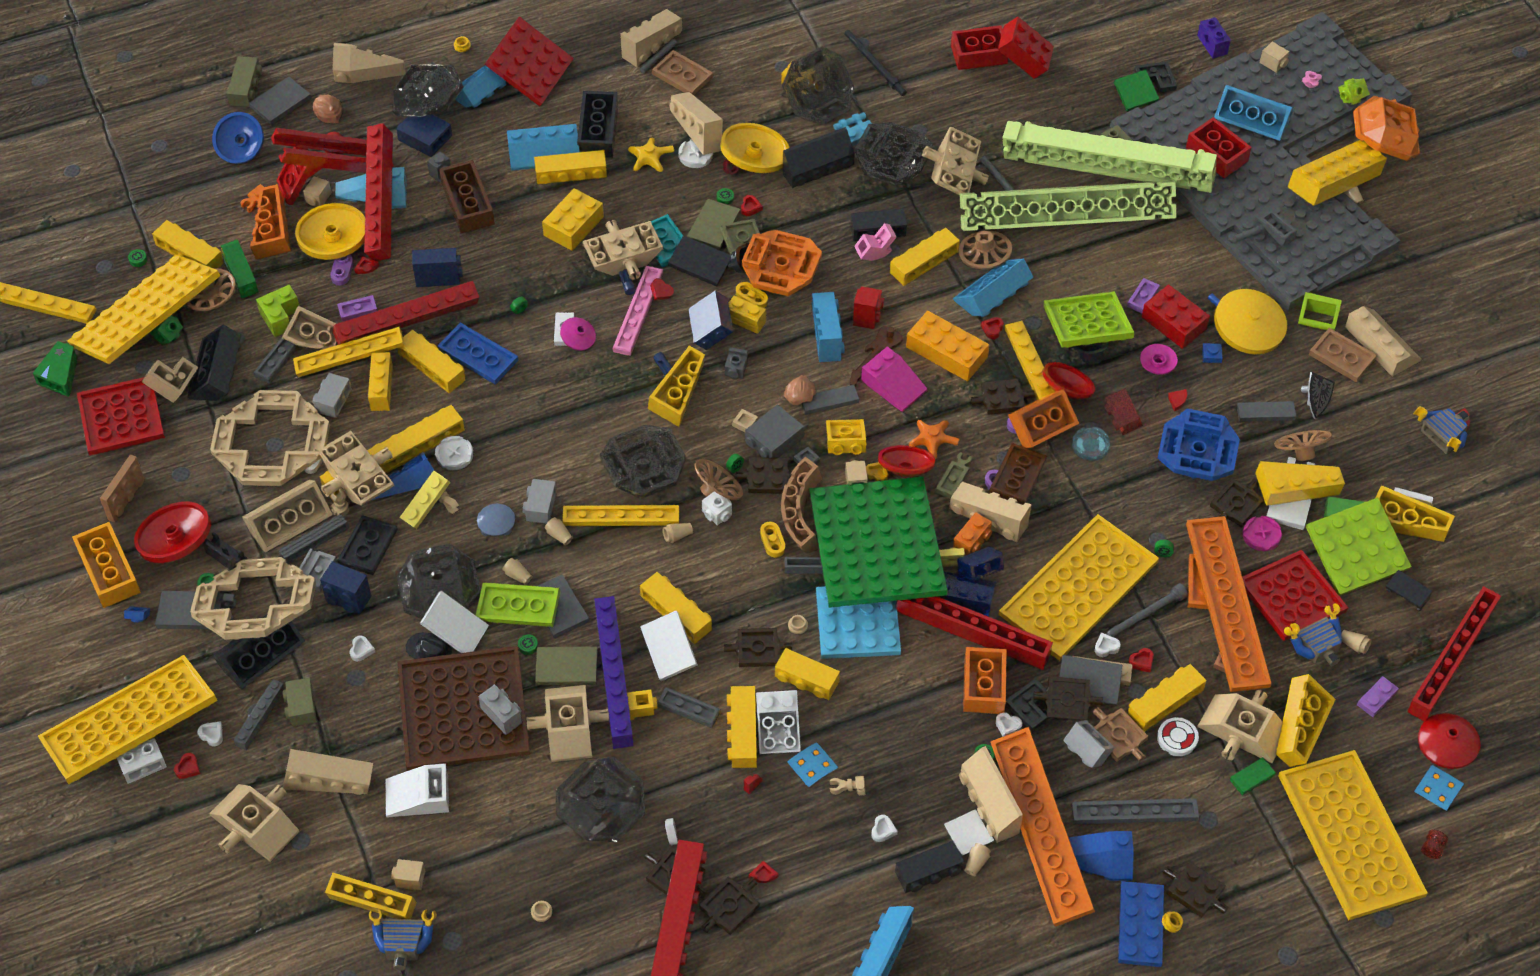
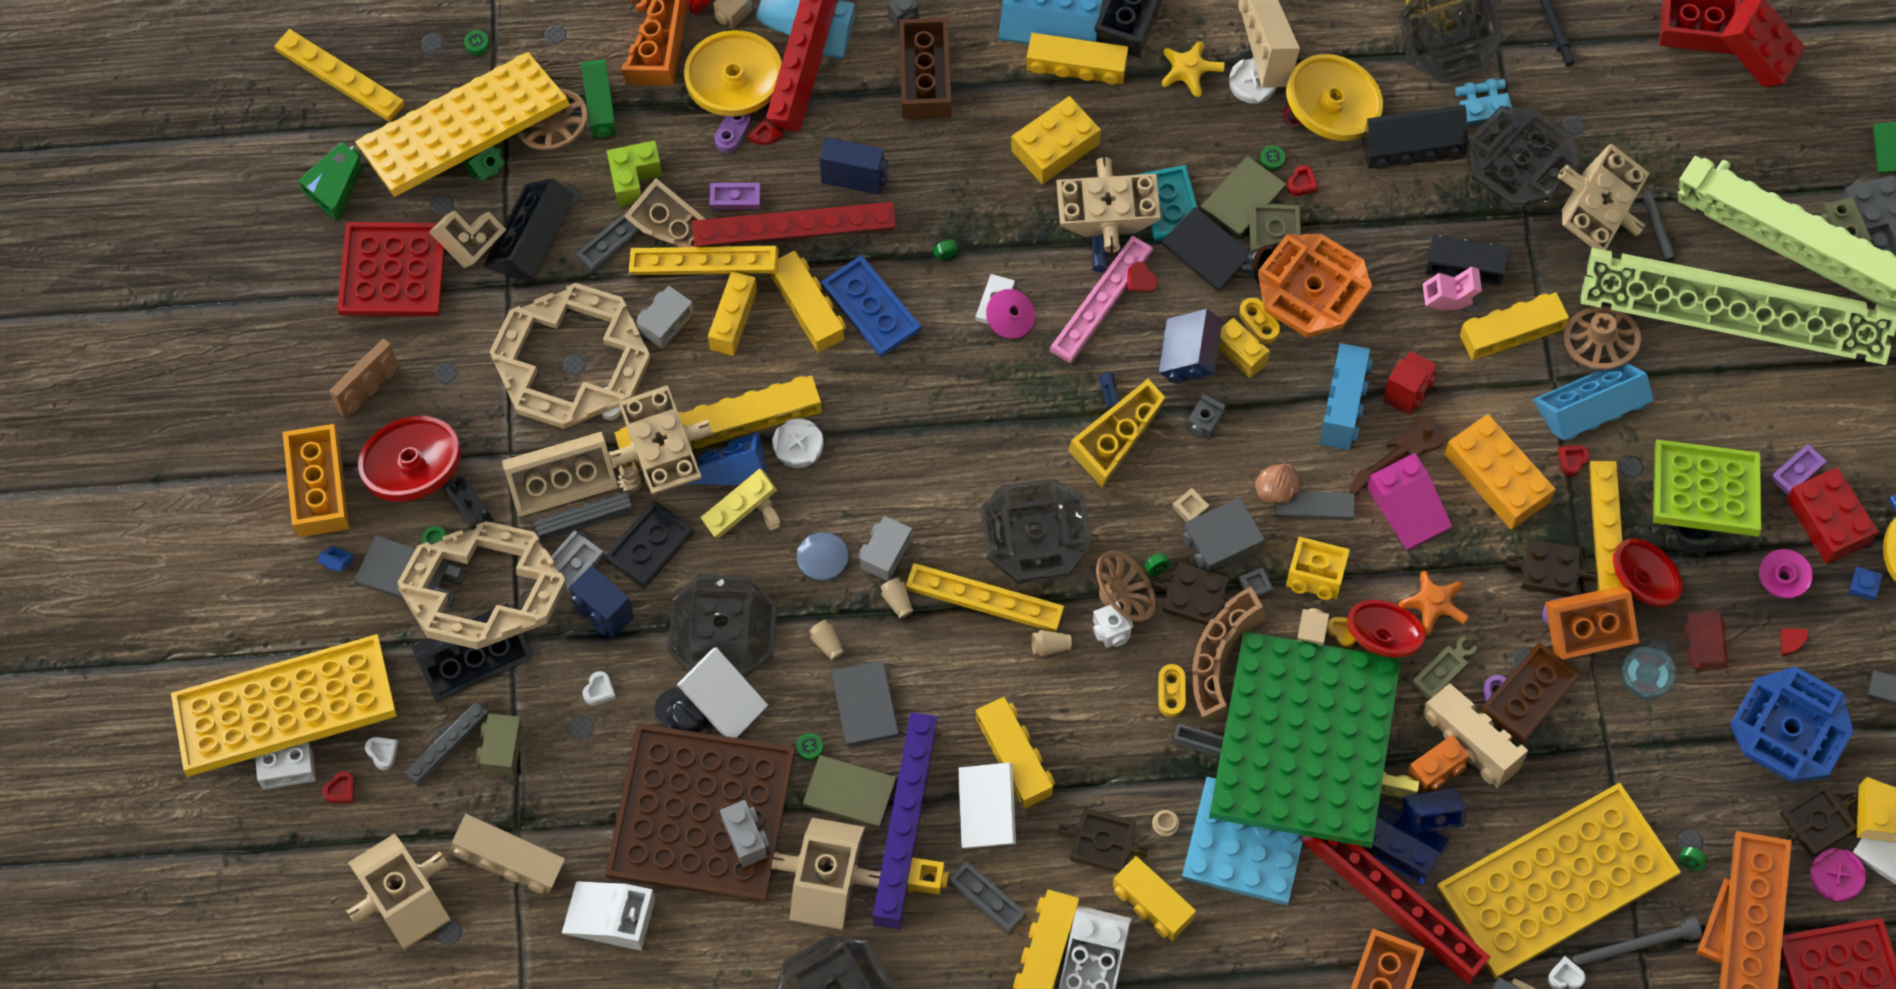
camera: 20 degrees right, 10 degrees up
(179, 242) = (543, 45): yellow brick -> none
(518, 604) = (812, 688): lime plate -> none

